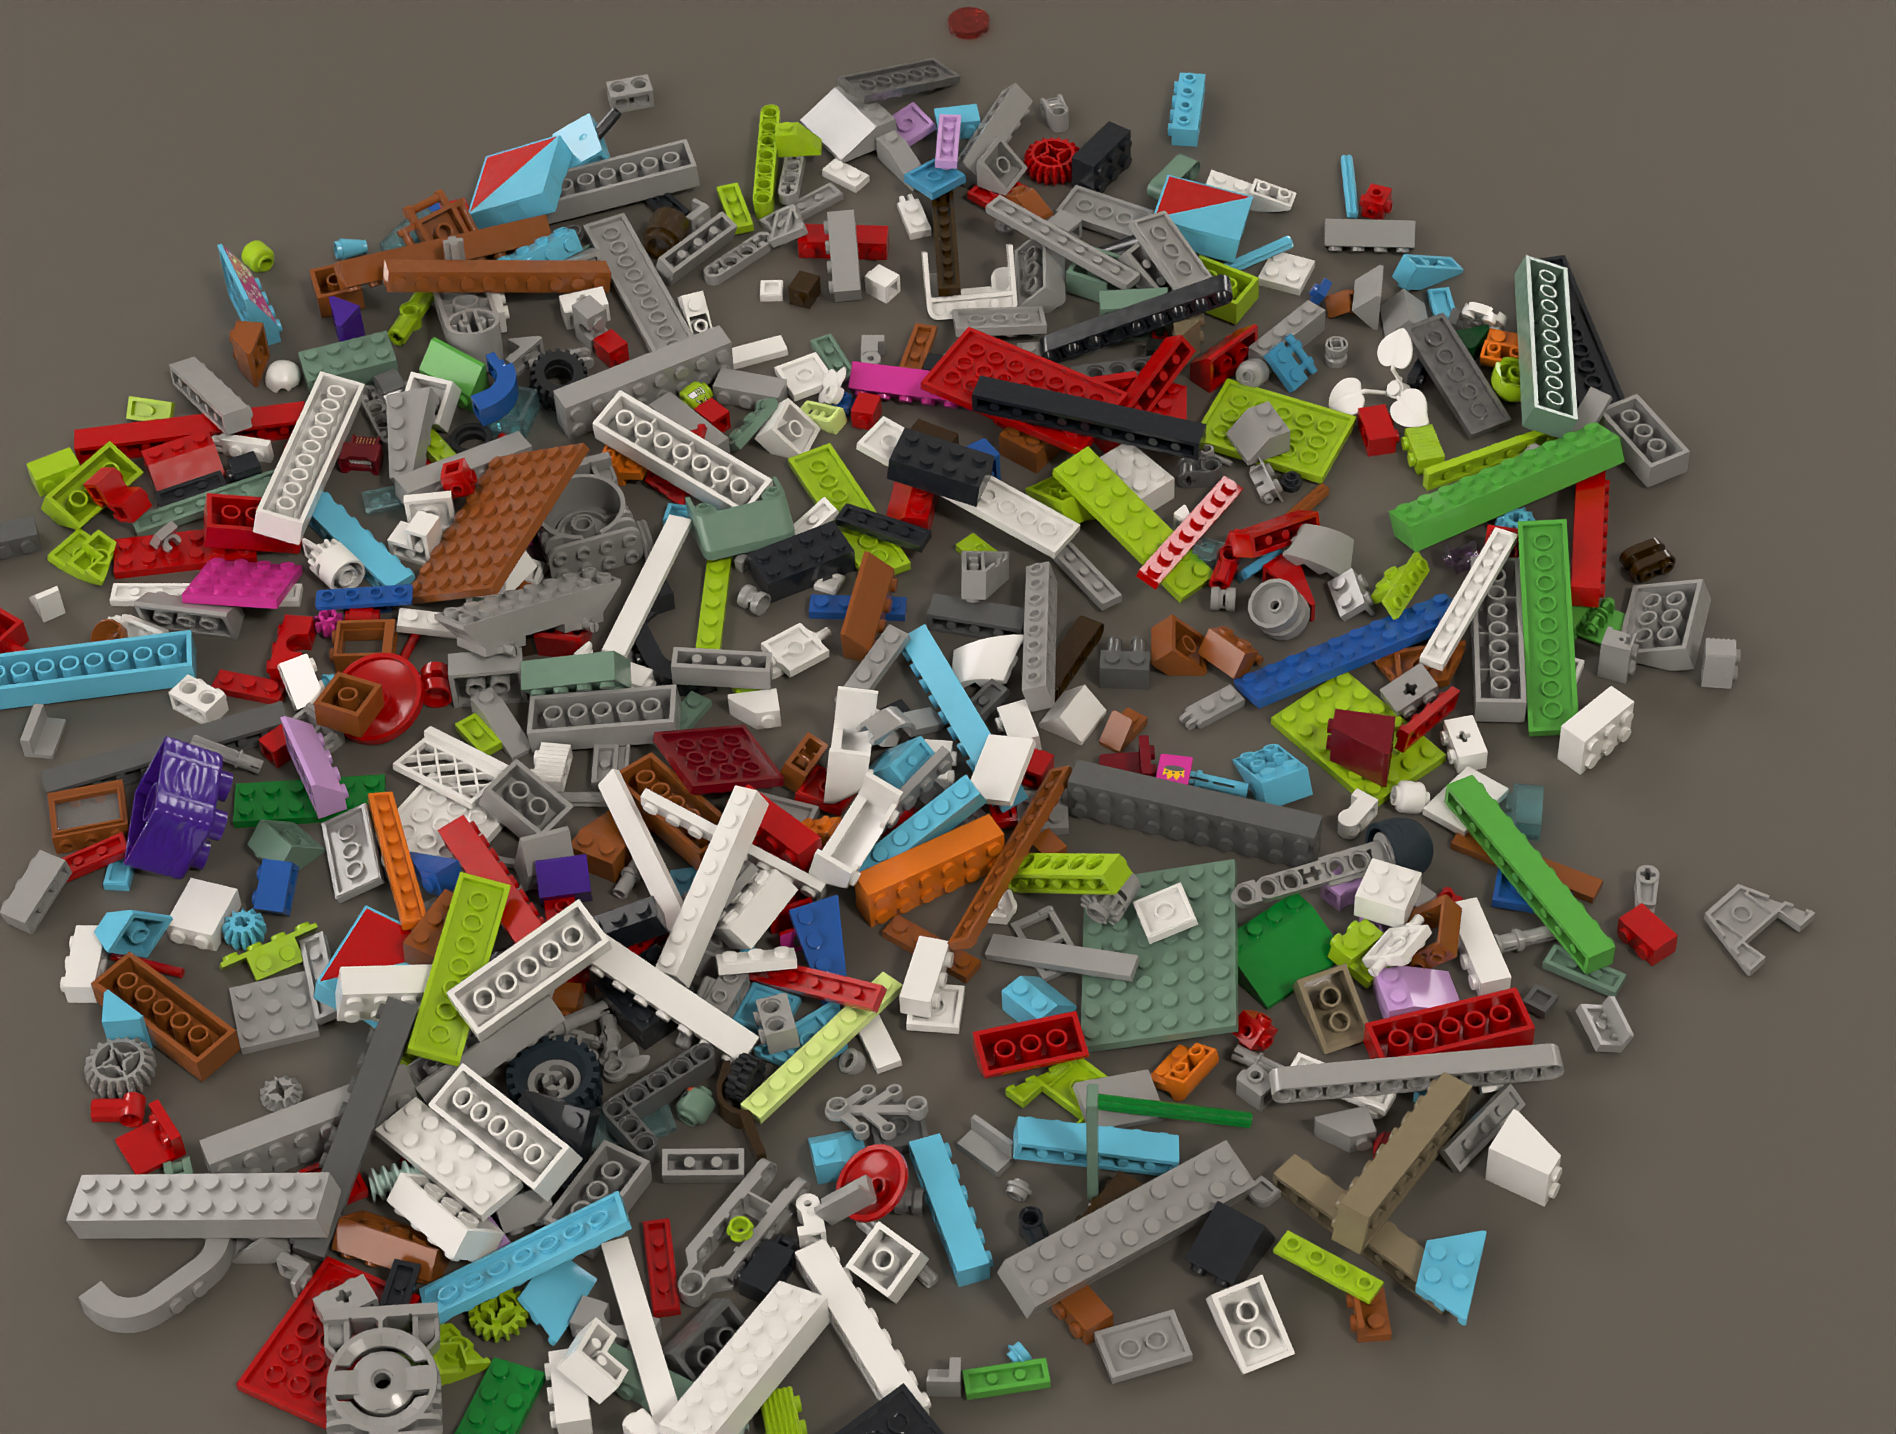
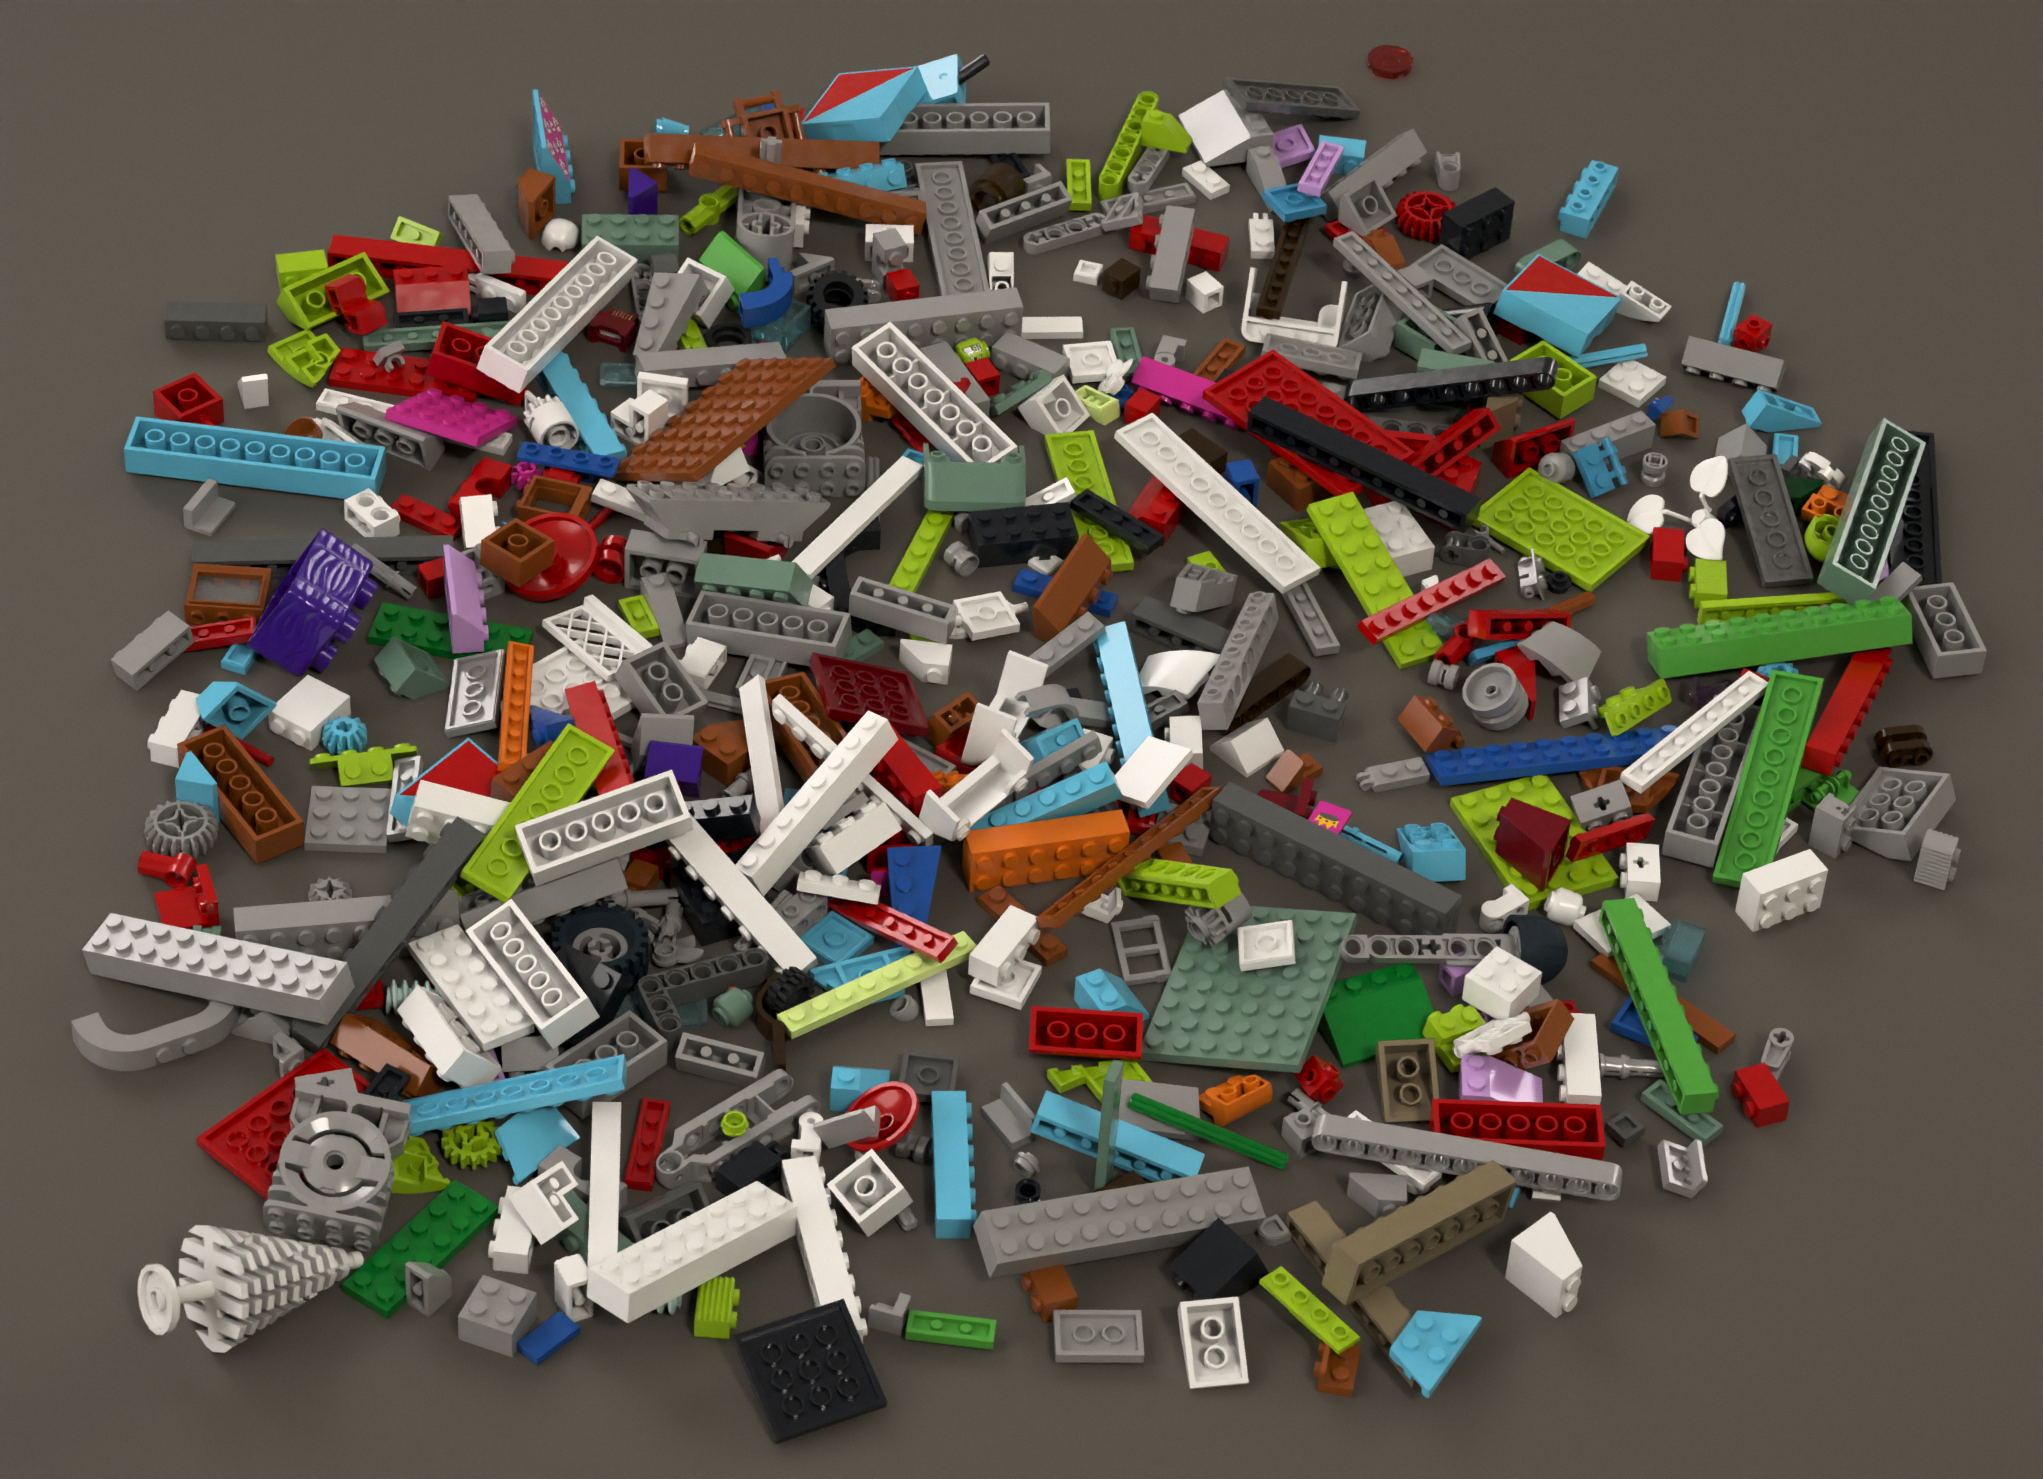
camera: 10 degrees right, 5 degrees down
(258, 256) = (574, 116): lime head -> none
(275, 887) = (388, 704): blue brick -> none
(458, 478) = (699, 369): red brick -> none
(630, 93) = (1010, 49): light grey brick -> none
(777, 1023) = (839, 950): light grey brick -> none
(845, 1109) = (877, 1047): light grey plant -> none
(940, 467) = (1192, 474): black brick -> none
(1018, 1353) = (971, 1309): medium azure plate -> none
(1062, 957) = (1150, 964): light grey tile -> none
(1169, 250) = (1507, 322): light grey tile -> none
(1176, 648) = (1376, 709): dark orange slope -> none
(1259, 434) = (1540, 526): light grey slope -> none
(1368, 296) = (1708, 424): light grey slope -> none
(1481, 1128) = (1498, 1236): light grey plate -> none
(1744, 915) = (1870, 1103): light grey wing -> none

